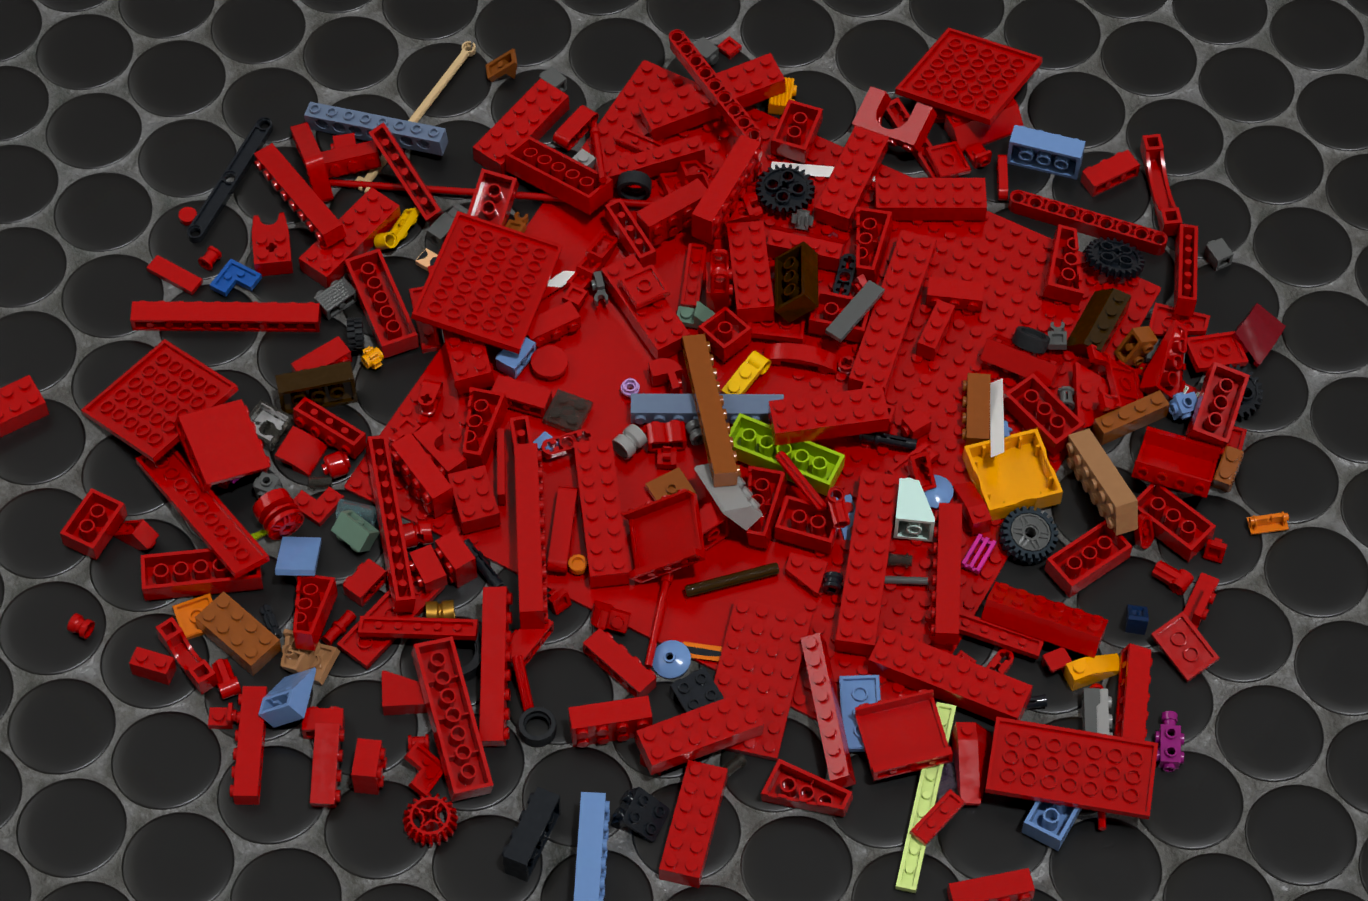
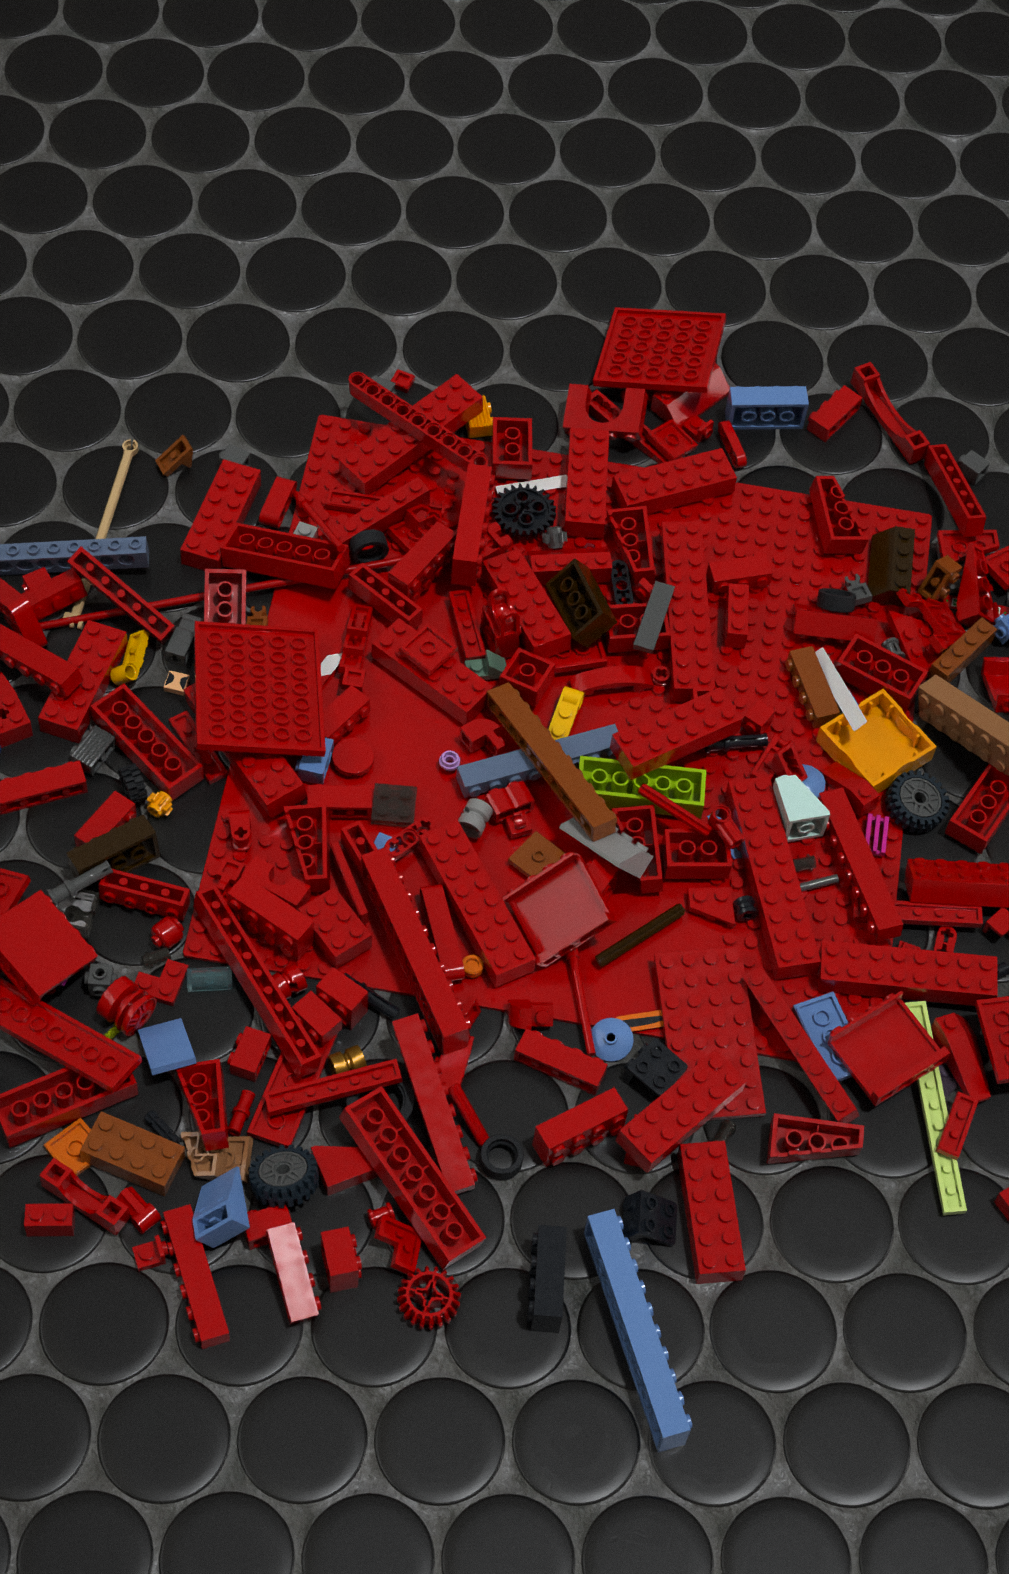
camera: 25 degrees left, 0 degrees up
(268, 405) = (69, 888): none -> dark grey pin
(301, 451) = (121, 929): red slope -> none
(350, 687) = (284, 1176): none -> black wheel
(355, 531) = (218, 1000): sand green brick -> none
(598, 286) = (374, 662): dark grey plate -> none
(693, 429) = (539, 788): dark grey wheel -> none
(1098, 225) = (842, 467): red beam -> none
(1114, 258) = (878, 497): black gear -> none

